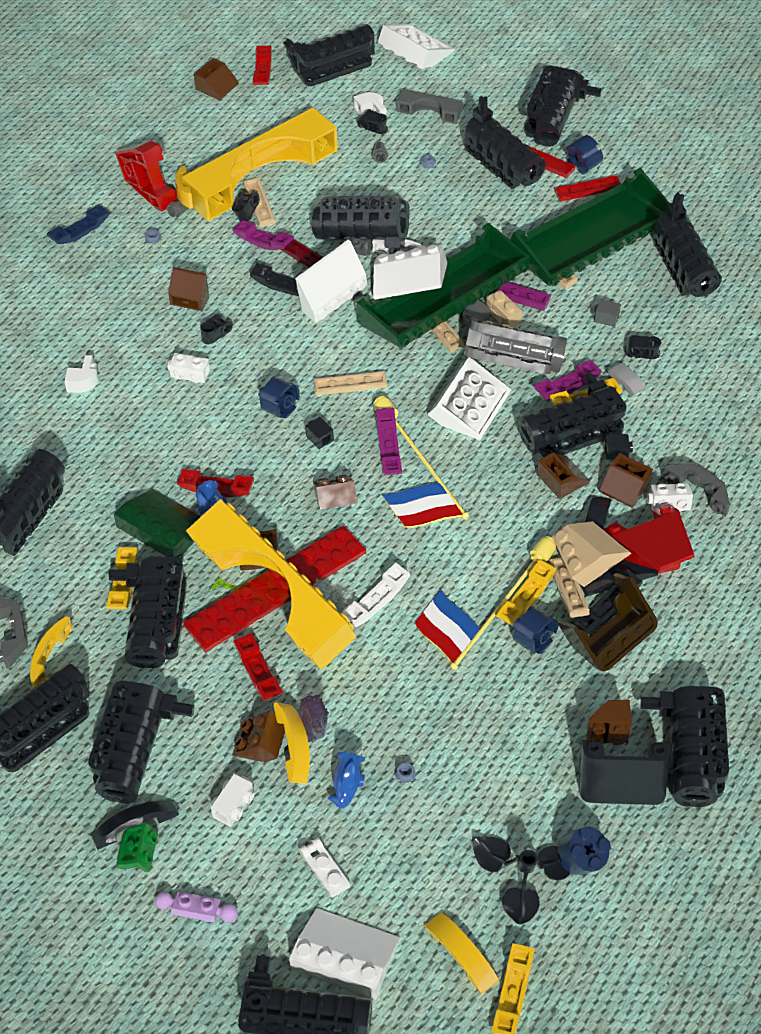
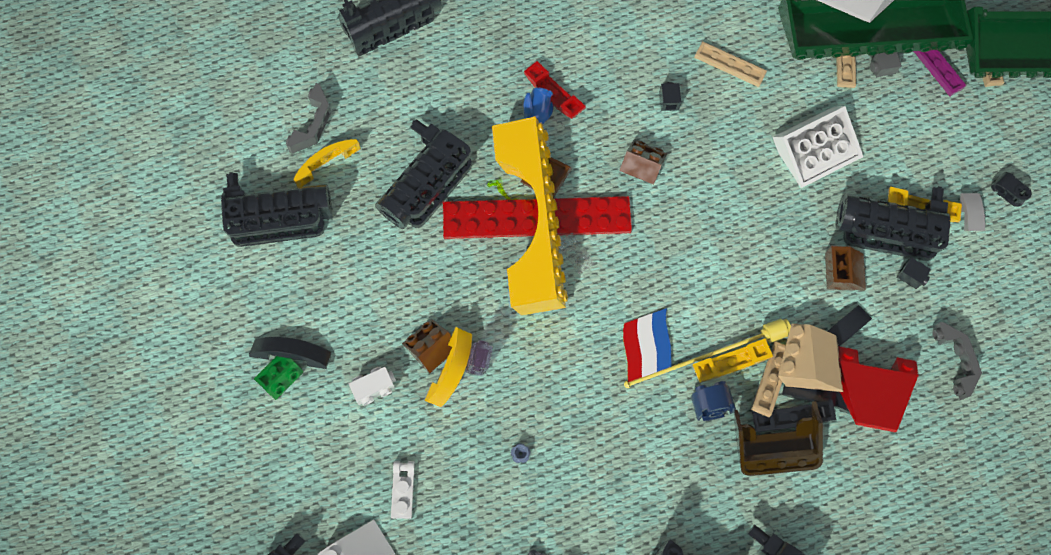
camera: 30 degrees right, 20 degrees up
(120, 594) = (412, 146): yellow slope -> none
(130, 738) = (330, 280): black piece -> none
(157, 522) = (486, 97): dark green slope -> none
(196, 906) = (287, 455): lavender plate -> none
(256, 667) = (471, 282): red slope -> none
(279, 397) = (658, 42): dark blue brick -> none
(347, 778) = (470, 428): blue animal -> none
(378, 597) = (608, 281): white slope -> none
(388, 441) = (720, 142): magenta slope -> none
(423, 503) = (711, 218): flag -> none
(504, 309) = (913, 75): tan brick -> none
(514, 346) = (892, 121): piece -> none
(569, 382) = (918, 182): magenta slope -> none
(607, 312) = (1004, 134): dark grey brick -> none
(611, 723) = (714, 531): reddish brown slope -> none
(626, 480) = (896, 312): reddish brown slope -> none
(677, 495) = (928, 355): white brick -> none

